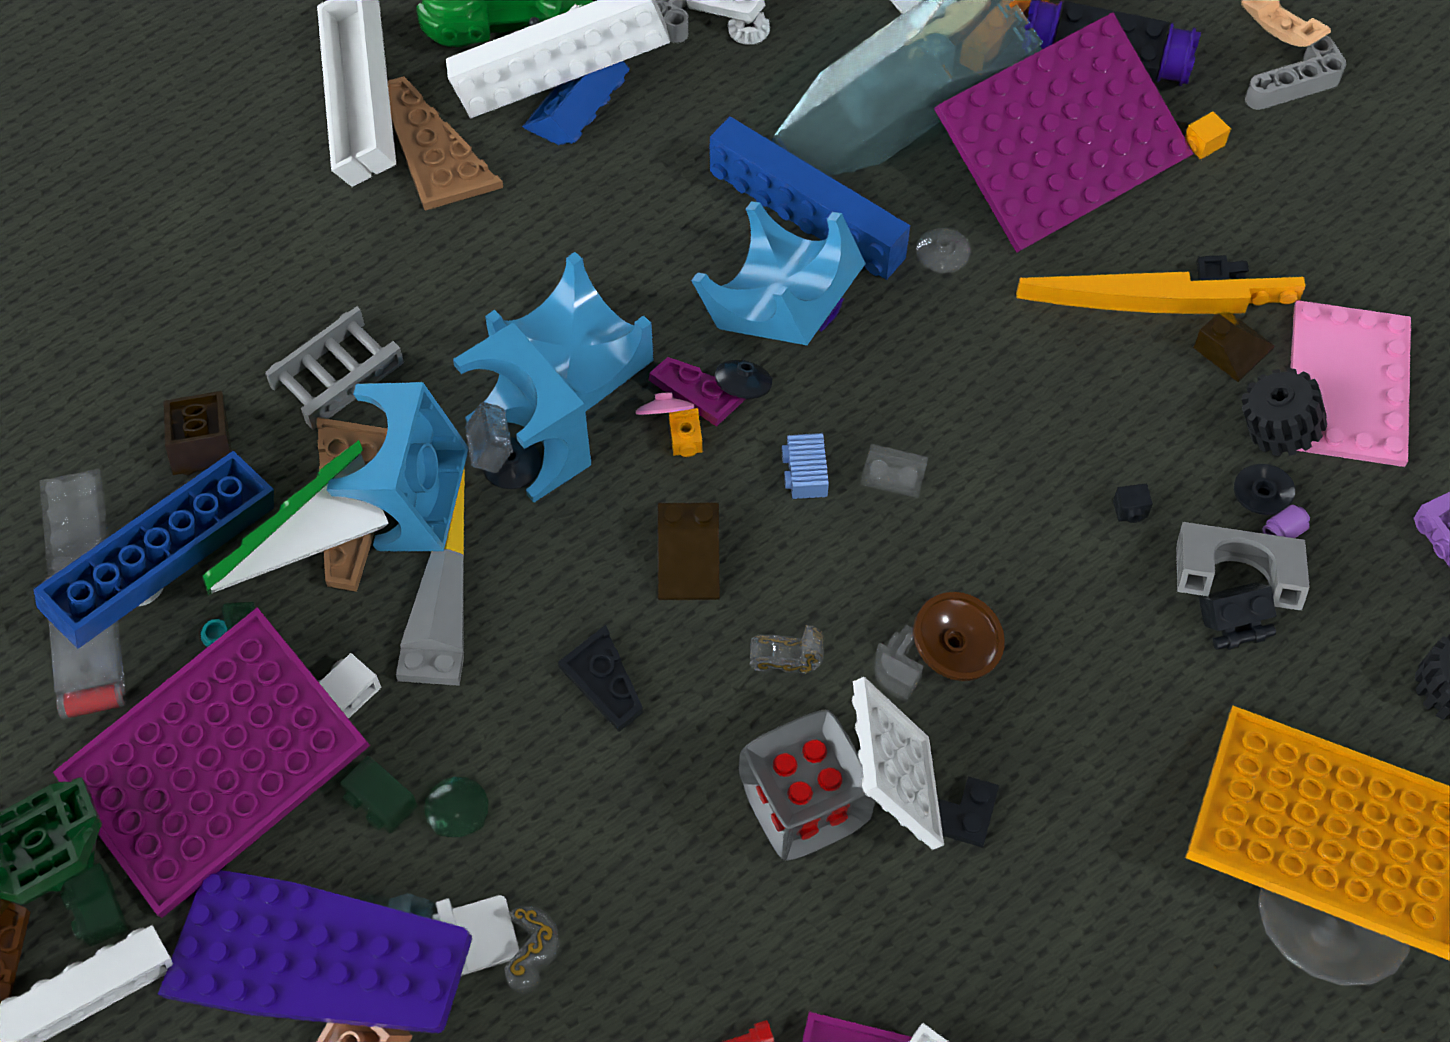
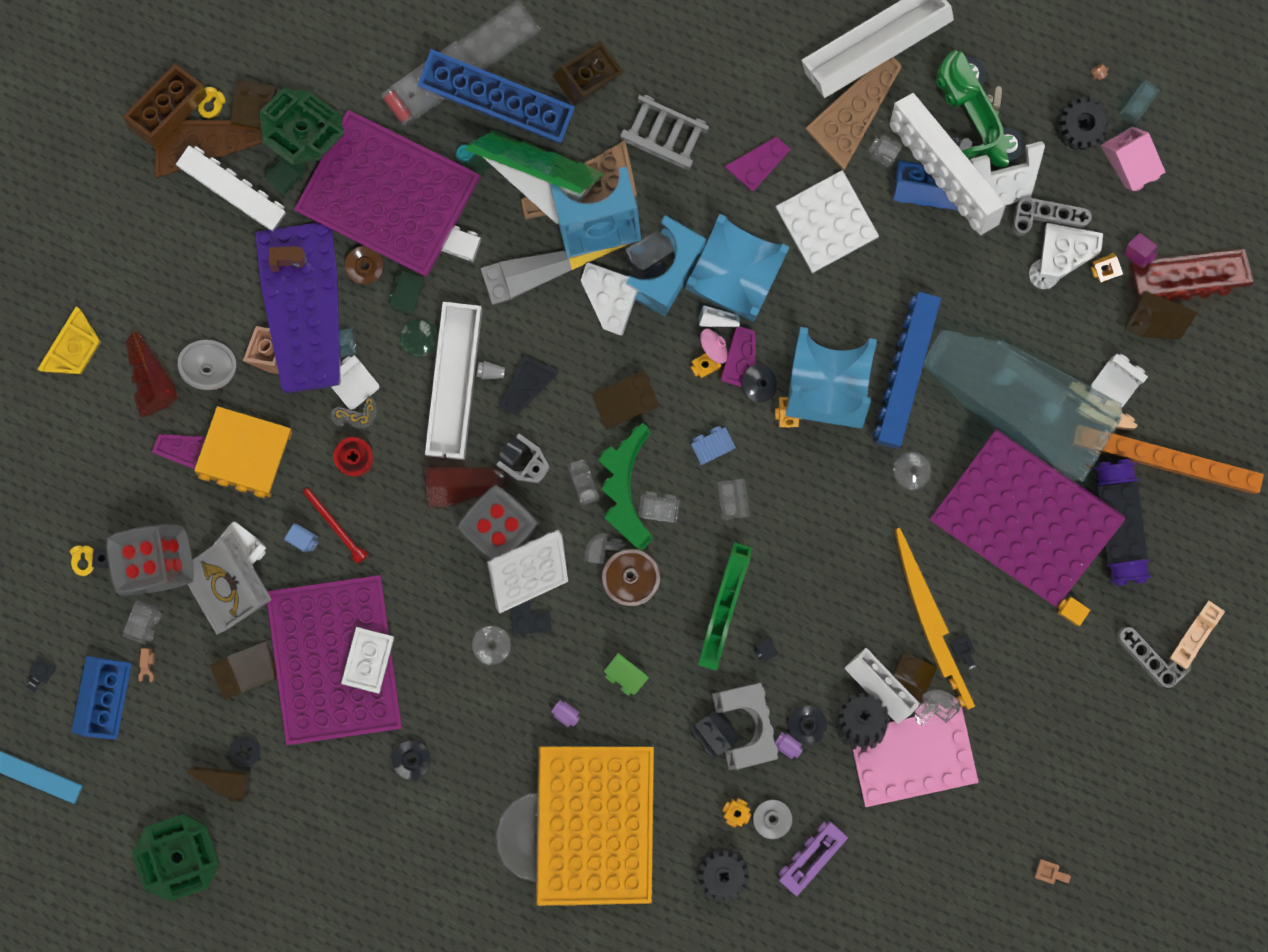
camera: 60 degrees right, 25 degrees up
(225, 945) = (286, 256): none -> reddish brown leg
(295, 829) = (354, 265): none -> reddish brown dish
(440, 277) = (758, 163): none -> magenta wing
(503, 124) = (884, 151): none -> clear brick
(527, 517) = (609, 296): none -> white plate
(549, 775) = (453, 380): none -> white piece
(555, 723) = (489, 371): none -> light grey cone
(556, 219) = (827, 221): none -> white plate
(584, 962) = (346, 449): none -> red brick
(623, 400) = (717, 318): none -> white slope
(710, 838) = (458, 484): none -> clear red wedge
(736, 709) = (511, 454): none -> light grey piece
(800, 358) = (780, 414): none -> light orange brick
(861, 606) = (618, 488): none -> green arch
(868, 567) = (659, 508): none -> clear brick
(994, 867) = (481, 647): none -> clear dish
(1016, 505) = (724, 606): none -> green arch
(1106, 697) = (625, 674): none -> bright green slope
(1139, 812) = (566, 714): none -> medium lavender brick
(1228, 379) = (882, 684): none -> white brick
(1286, 318) = (937, 703): none -> clear brick
(1370, 626) = (732, 806): none -> light orange brick
(1397, 573) = (775, 829): none -> light grey dish

